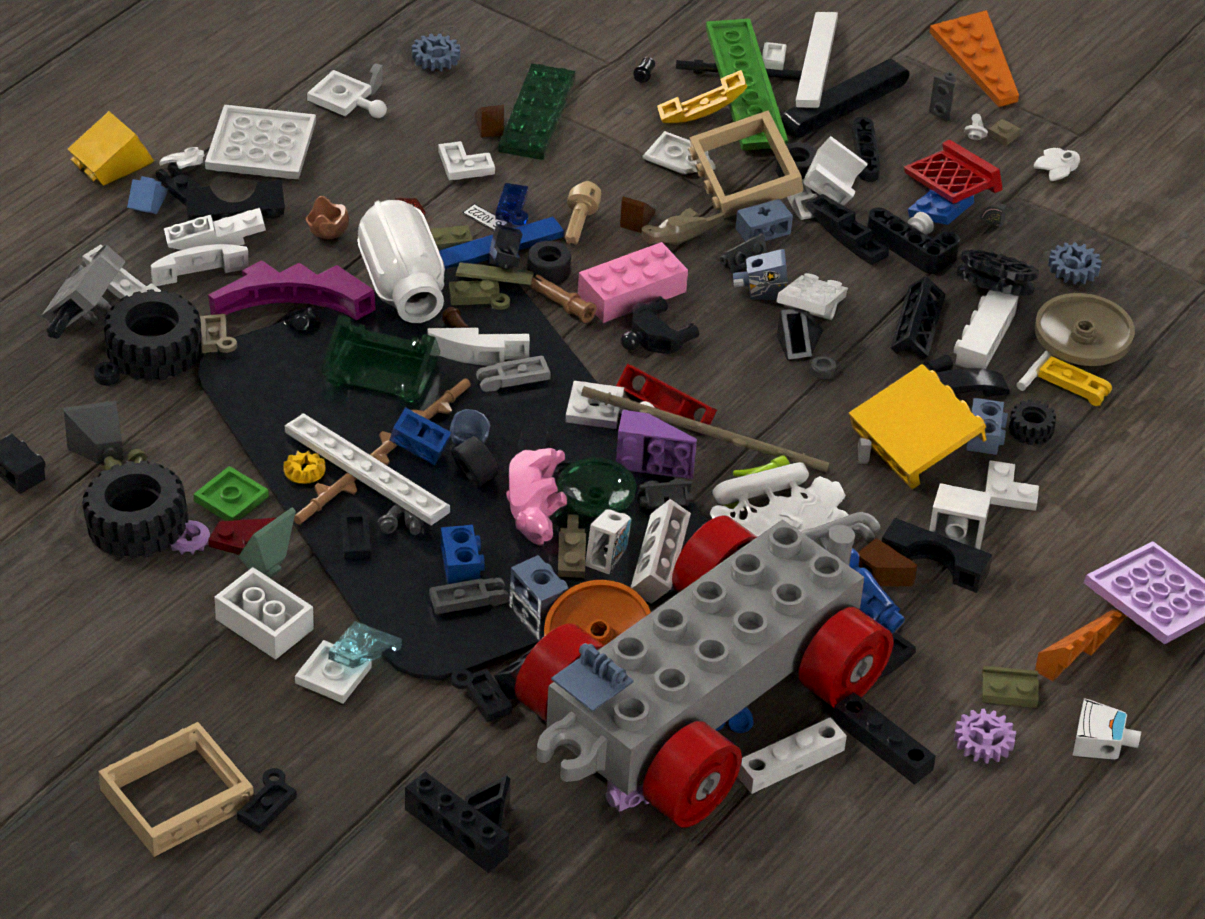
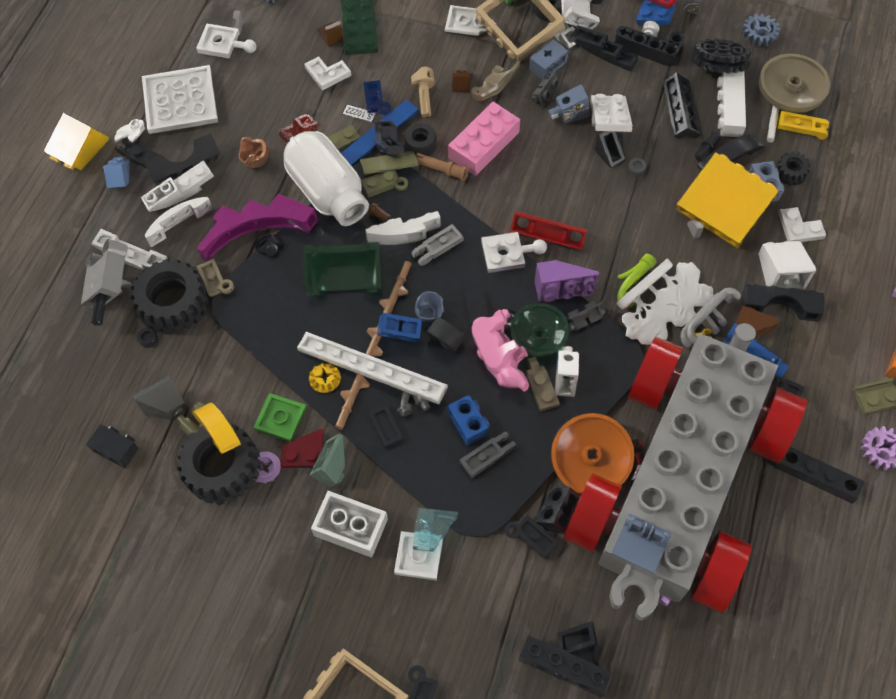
camera: 15 degrees left, 20 degrees up
(151, 465) = (217, 427): none -> yellow slope
(537, 585) = (540, 439): sand blue brick -> none
(653, 332) = (514, 176): black connector -> none
(660, 551) = (606, 370): white brick -> none
(717, 432) = (593, 248): dark tan plant -> none
(791, 755) = (767, 510): white piece -> none

